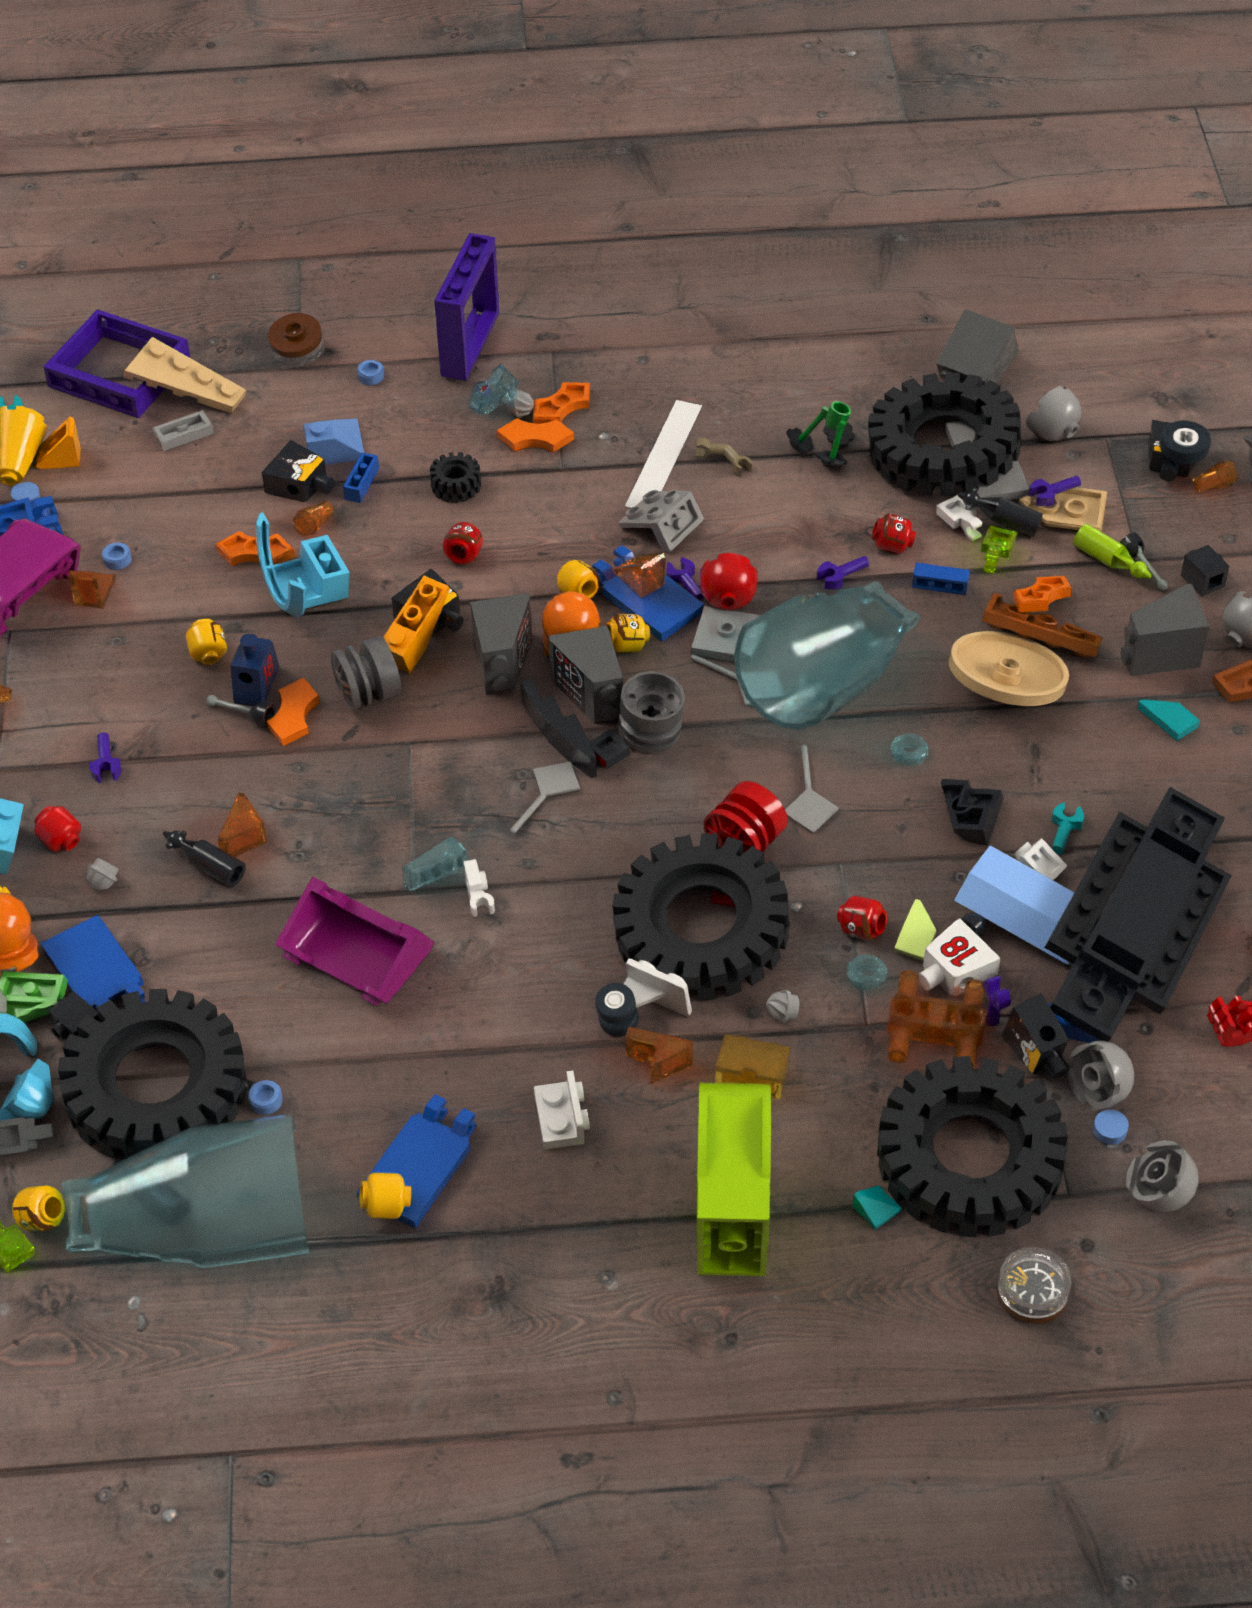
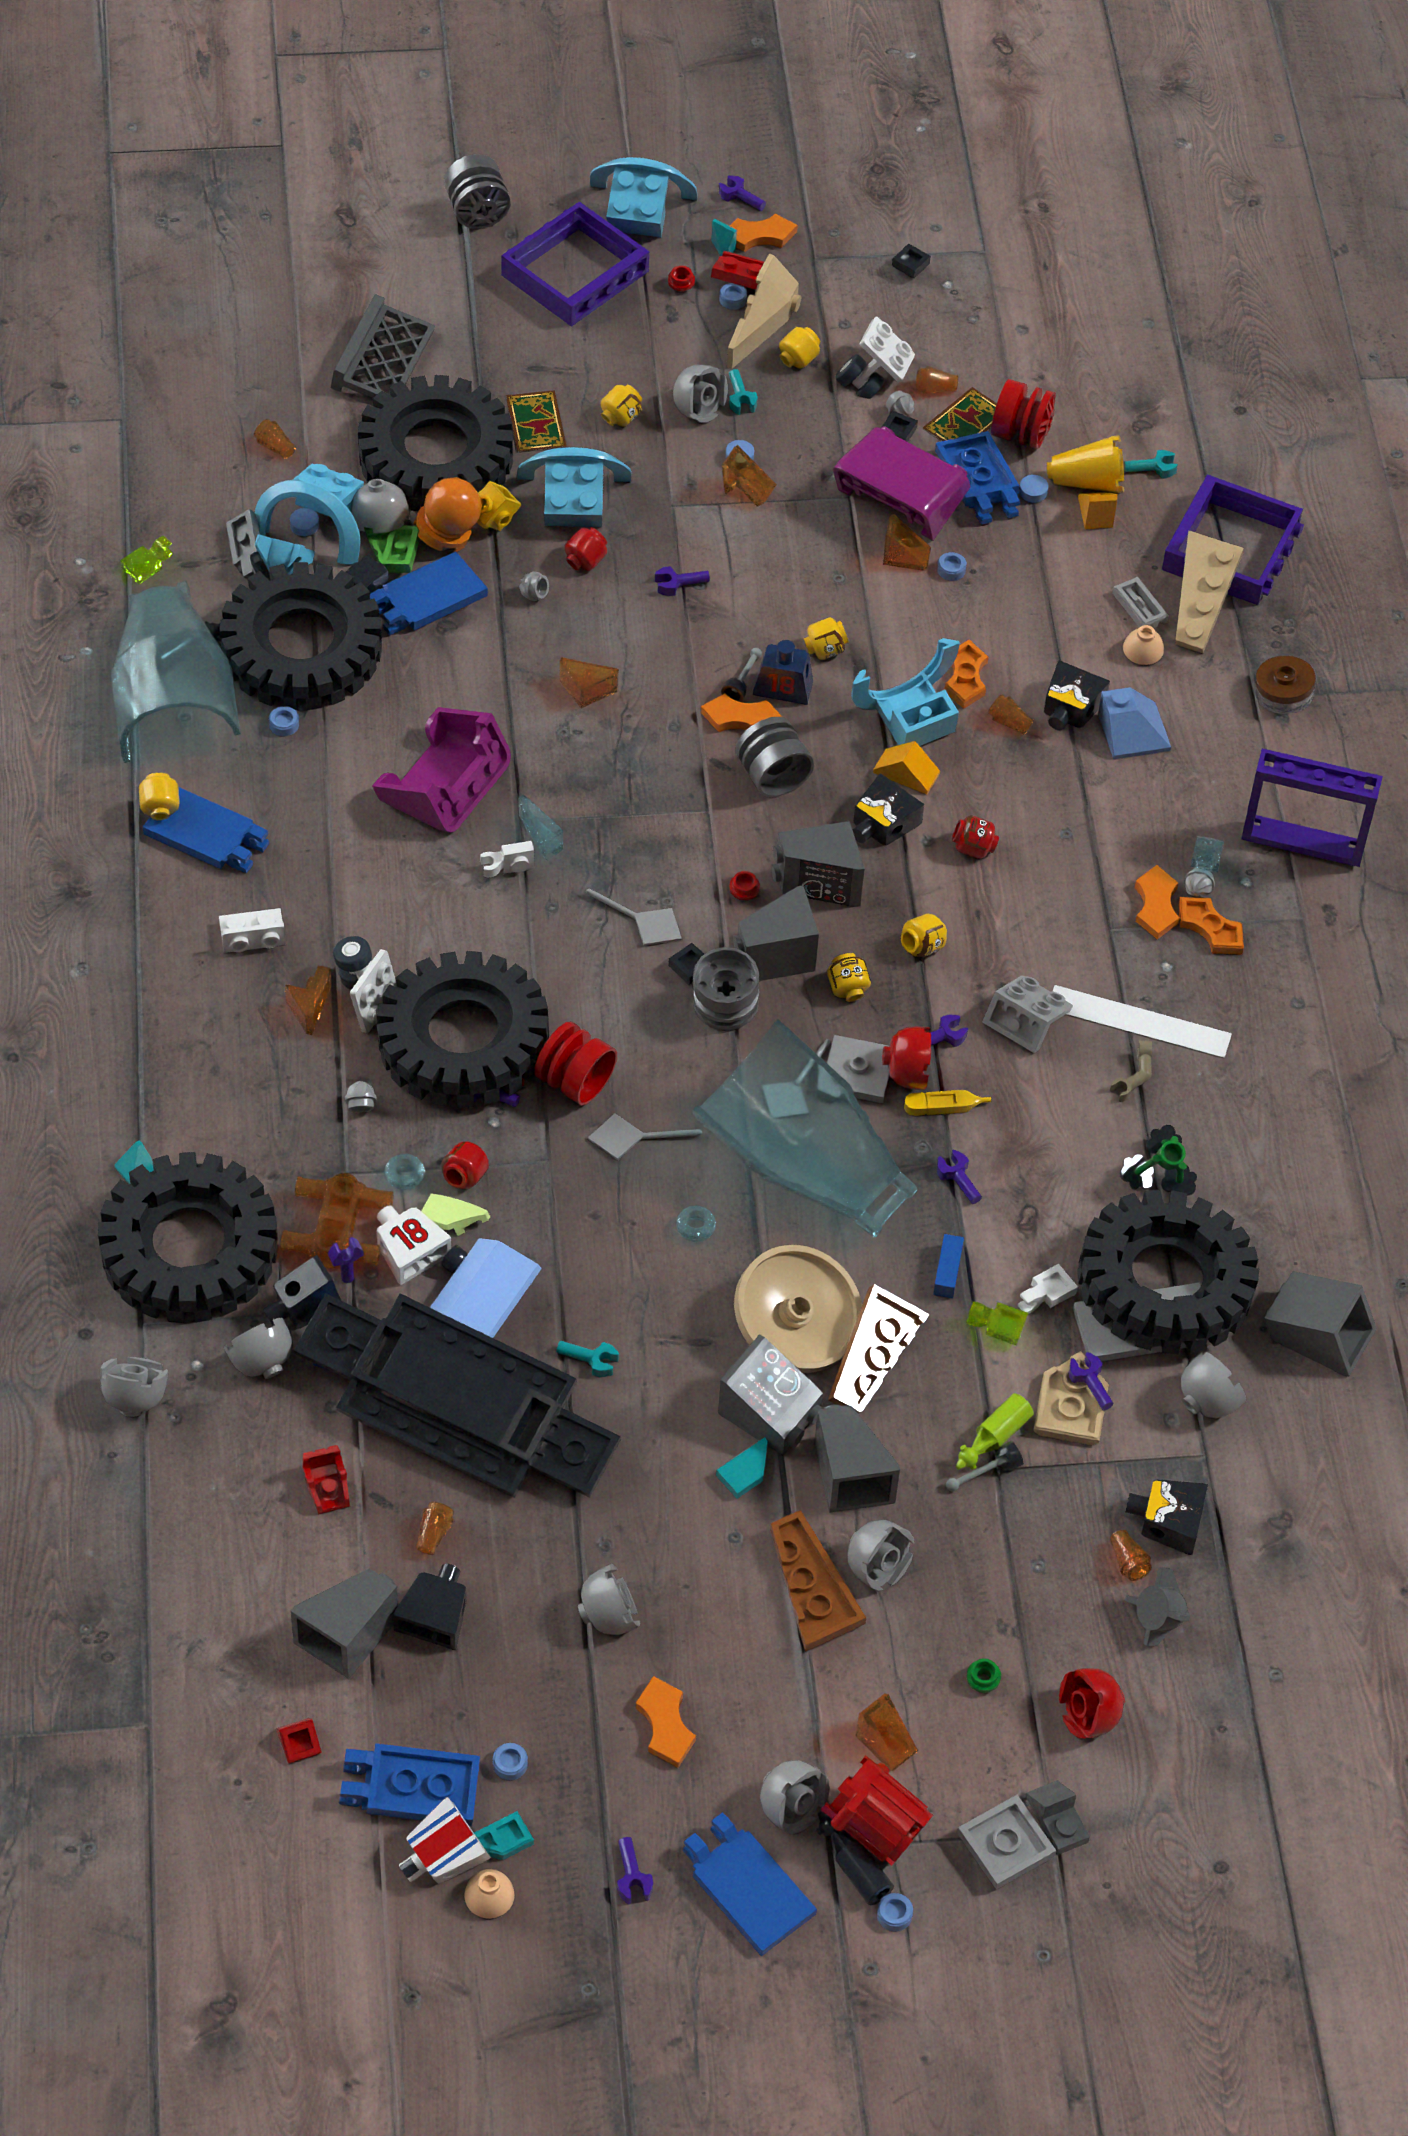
camera: 85 degrees right, 5 degrees up
(38, 1208) = (169, 570): yellow head -> none
(208, 858) = (547, 663): black wheel -> none
(235, 428) = (1144, 646): none -> light nougat brick
(361, 477) = (1075, 752): blue piece -> none
(368, 593) = (908, 766): none -> light orange slope
(370, 372) = (1246, 755): medium blue tile -> none
(415, 623) = (836, 791): light orange slope -> none
(455, 466) = (1076, 843): black tyre -> none
(511, 710) = (744, 886): none -> red plate
(561, 732) = (709, 924): black slope -> none
(566, 614) = (846, 923): orange tile -> none
(643, 573) = (926, 982): clear orange slope -> none
(662, 610) = (914, 996): blue tile -> none
(733, 1179) = (131, 1017): lime brick -> none
(753, 1063) = (292, 1076): clear yellow brick -> none
(764, 593) = (942, 1102): none -> yellow piece
(893, 534) = (1010, 1220): red head -> none
(972, 810) = (610, 1273): black slope -> none
(1004, 512) = (1046, 1327): black wheel -> none
(1034, 1285) = (33, 1275): clear piece -> none
(1041, 593) = (933, 1366): orange tile -> none
(1041, 859) = (534, 1322): white bracket -> none
(1102, 693) = (769, 1396): none -> slope
(1110, 1127) = (211, 1360): medium blue tile -> none
(1185, 442) = (1161, 1492): black bush -> none
(1205, 570) = (969, 1522): black brick -> none

